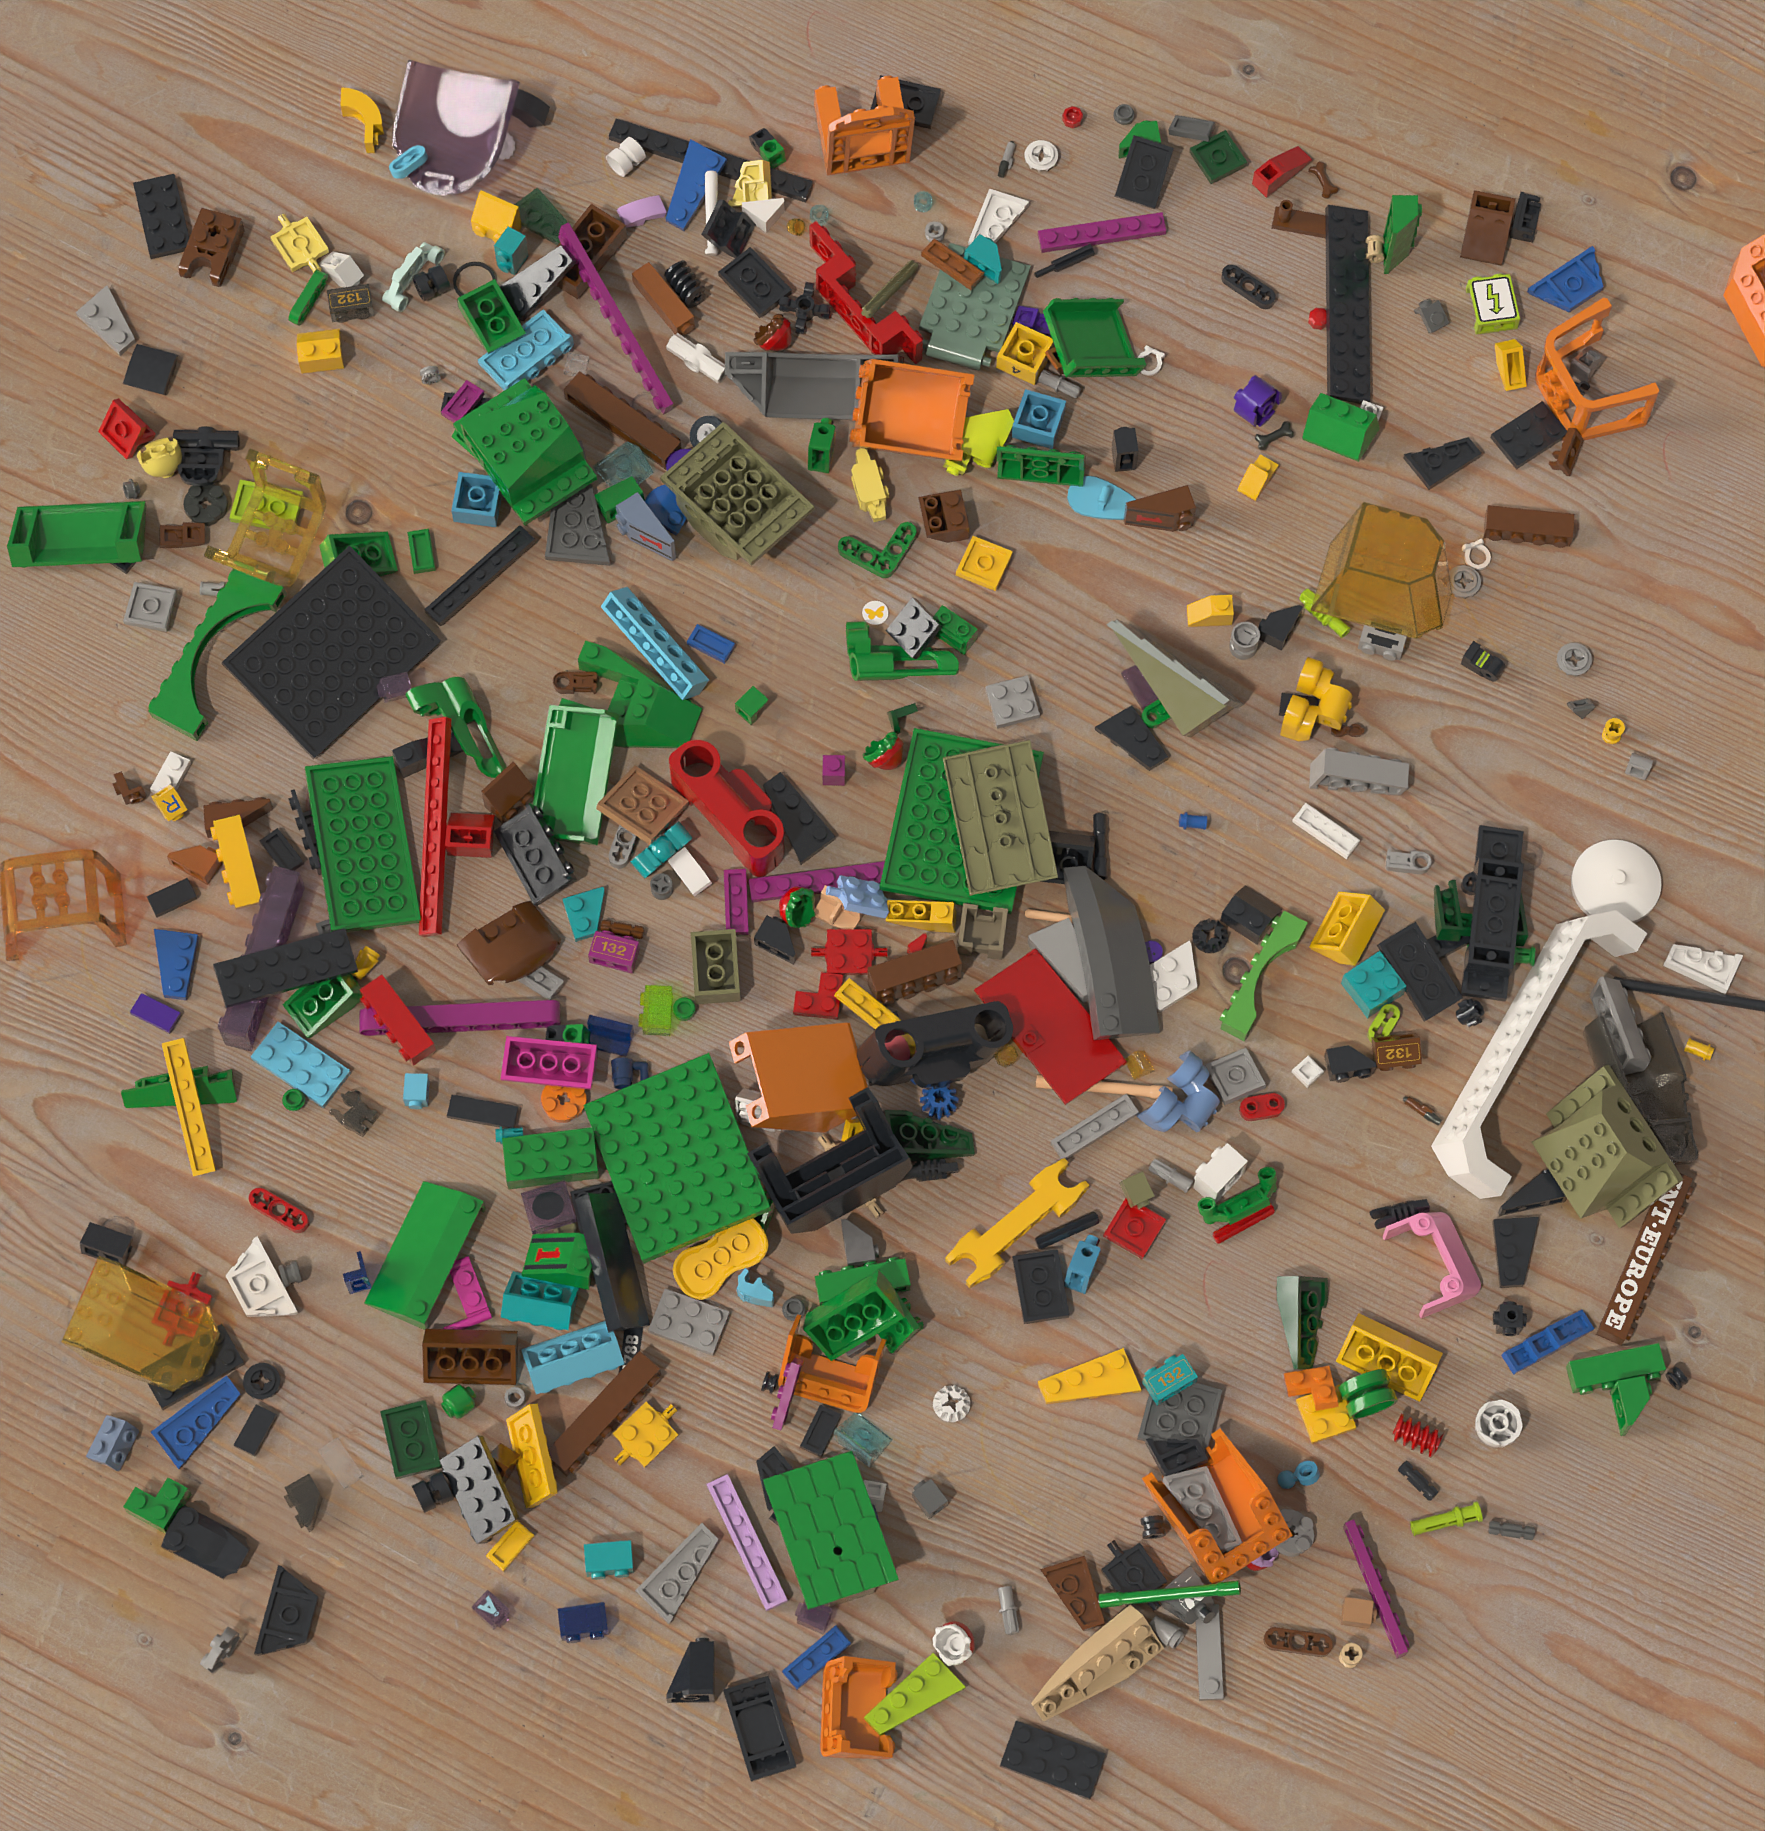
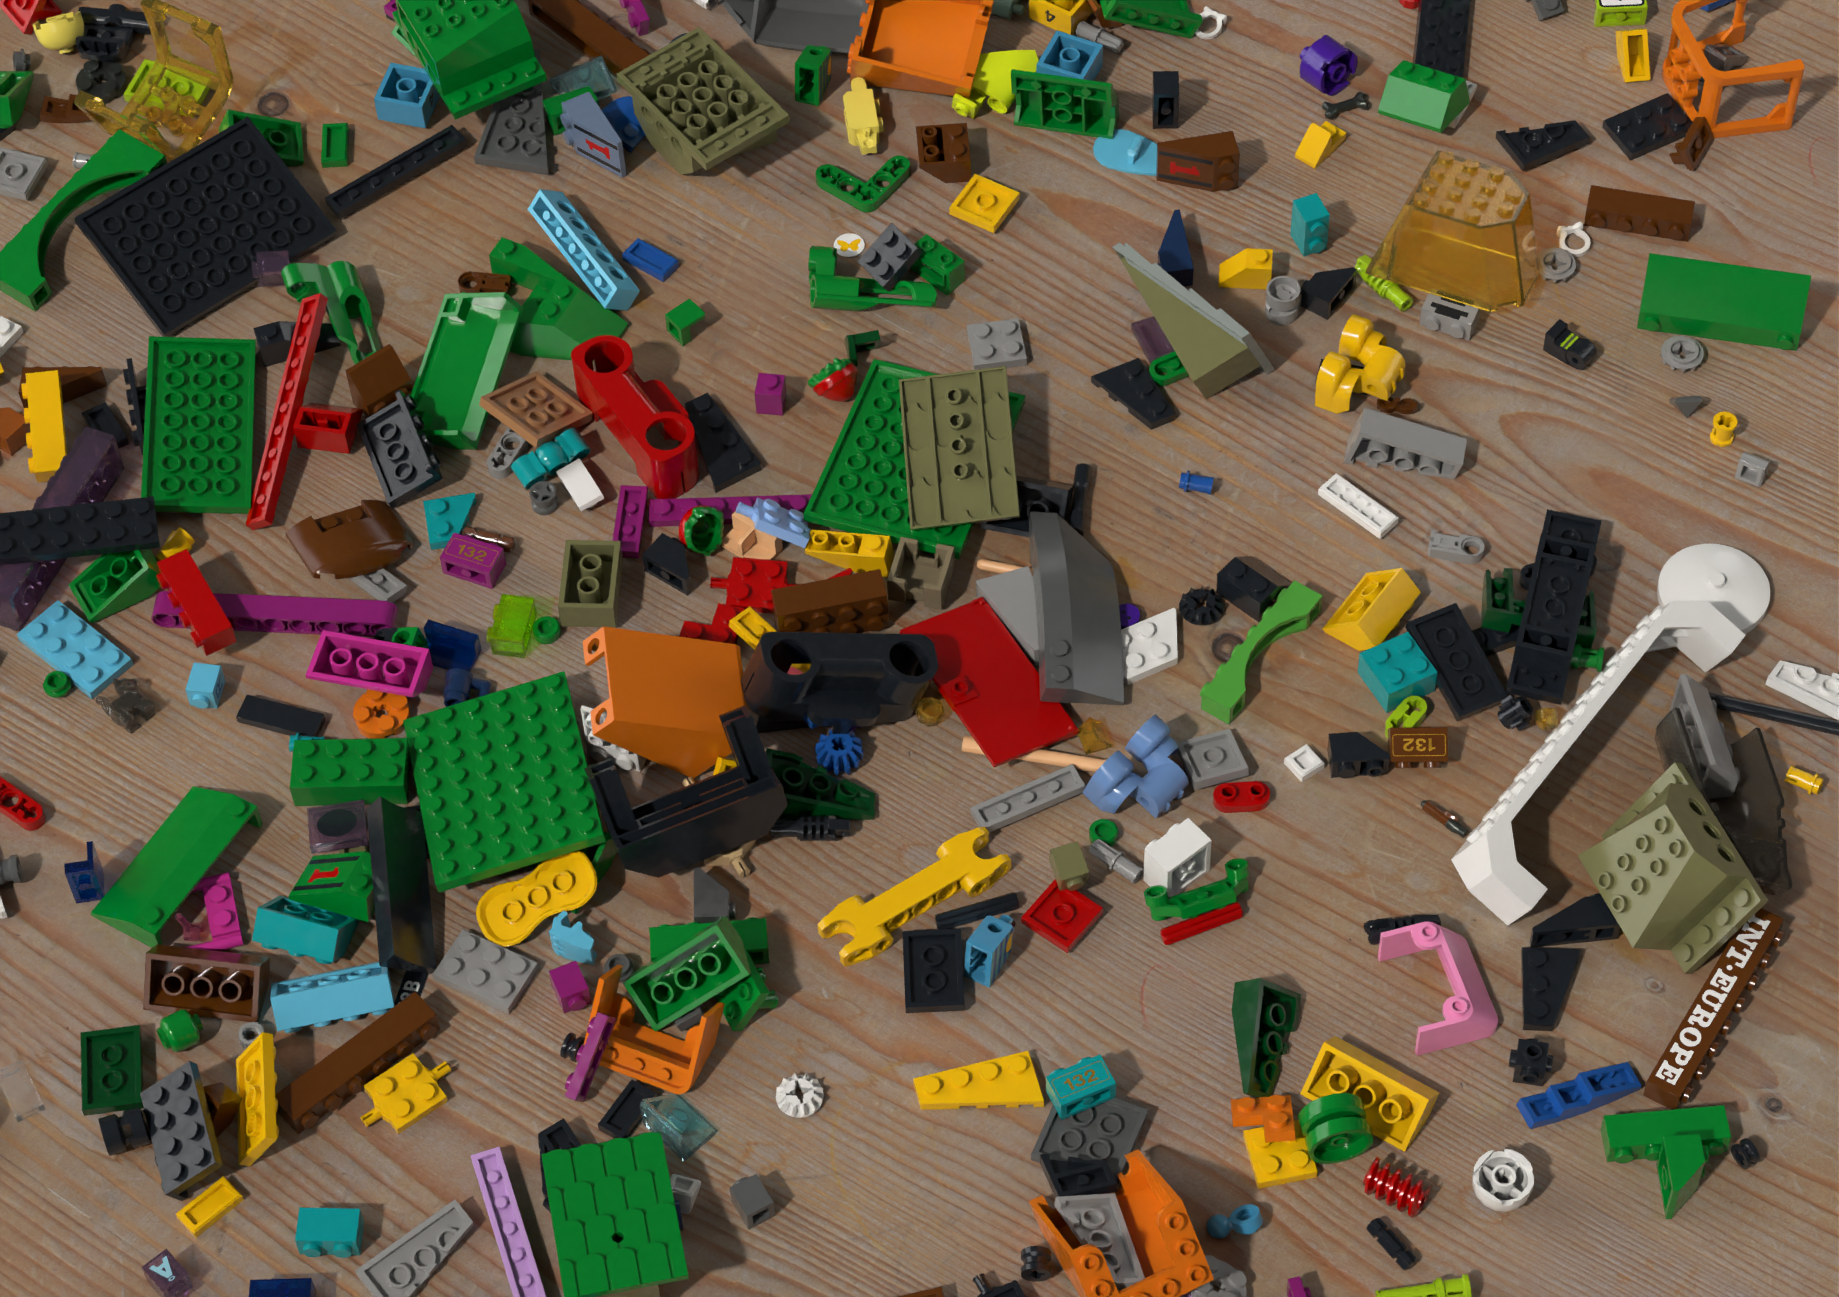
camera: 10 degrees right, 15 degrees down
(449, 1311) = (191, 931): none -> clear pink hand
(759, 1331) = (570, 987): none -> magenta brick
(1150, 607) = (1175, 253): none -> dark blue slope
(1157, 1150) = (1103, 830): none -> green tile
(1259, 566) = (1310, 224): none -> teal brick
(1494, 1014) = (1546, 718): none -> clear yellow hinge
(1605, 615) = (1723, 302): none -> green slope

